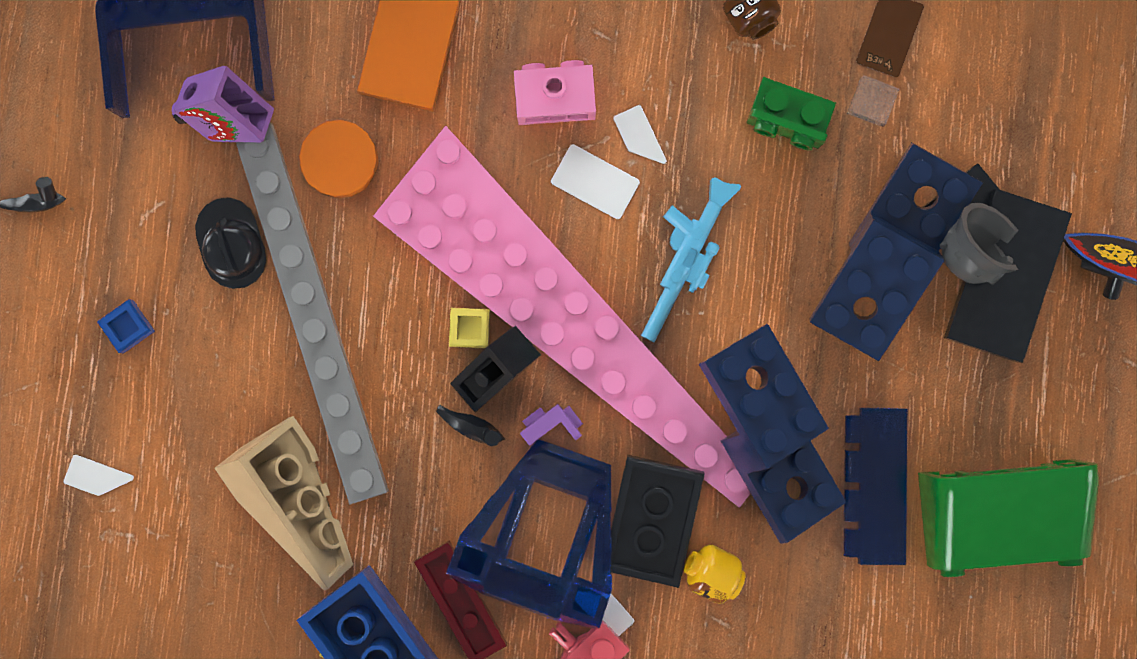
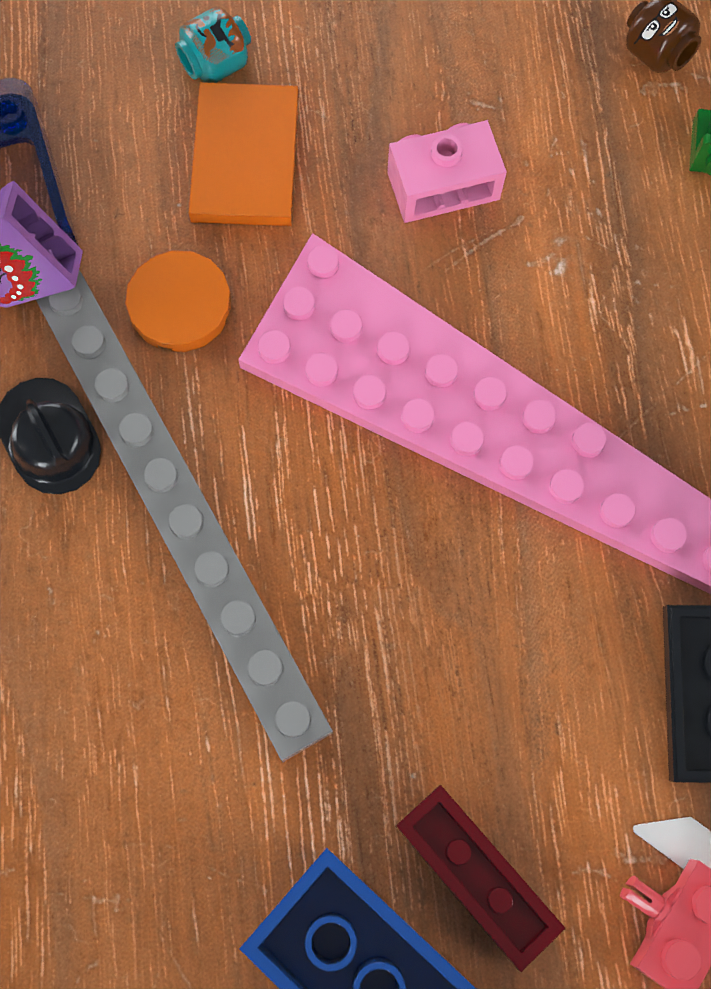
camera: 15 degrees left, 15 degrees down
(284, 493) = (180, 765): tan wedge -> none
(469, 328) = (399, 481): light yellow tile -> none
(471, 426) = (434, 614): black bar -> none
(495, 368) = (448, 524): black slope -> none
(540, 423) = (532, 584): medium lavender bracket -> none
(555, 597) = (620, 836): clear blue windscreen -> none
(595, 181) = (520, 271): white sticker -> none
(638, 134) = (560, 206): white sticker -> none
(688, 262) = (669, 344): medium azure piece -> none

